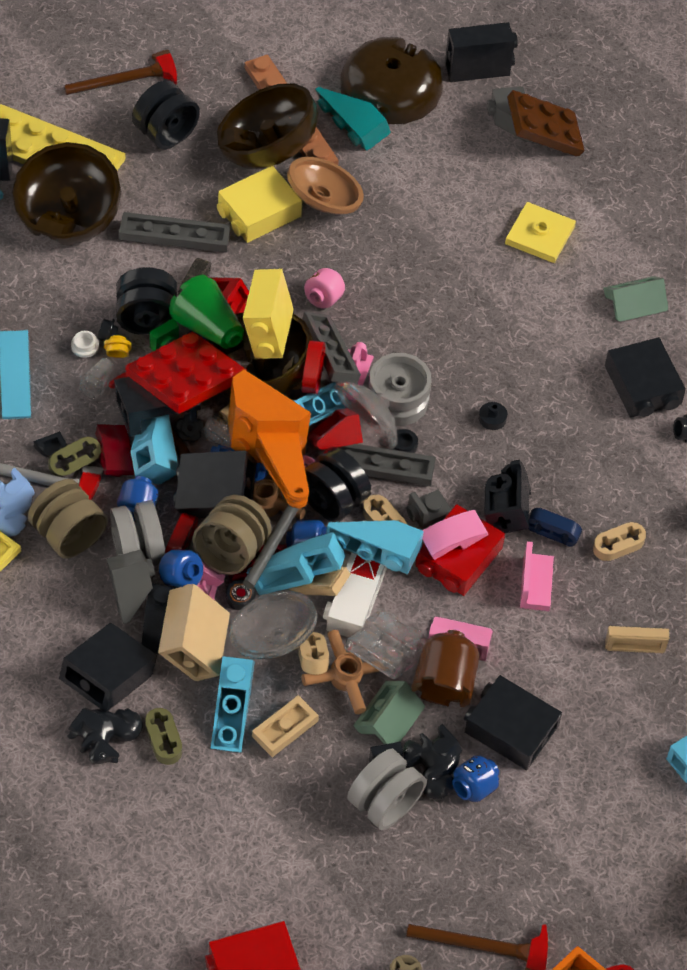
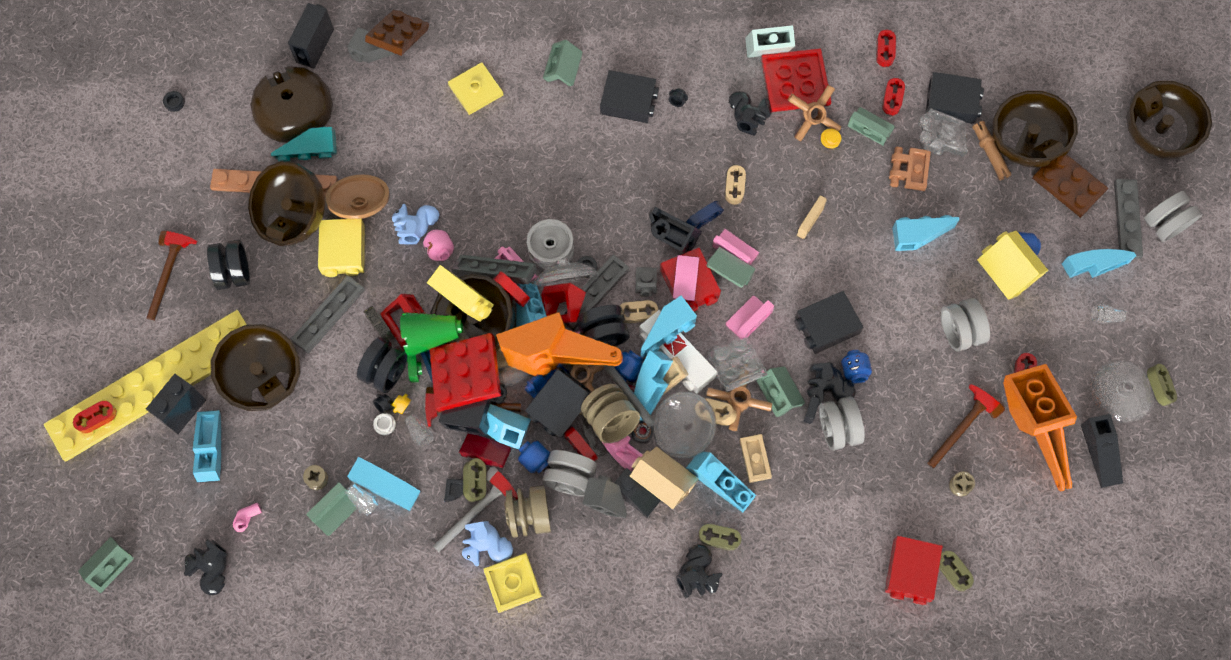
camera: 55 degrees left, 15 degrees up
(107, 667) = (656, 545): black brick -> none
(179, 566) = (613, 459): blue head -> none
(331, 255) = (414, 227): none -> light blue animal
(447, 669) = (777, 338): reddish brown cylinder -> none
(492, 416) = (599, 202): black tile -> none
(504, 580) = (731, 267): none -> sand green panel
(615, 870) = (965, 324): none -> light grey wheel

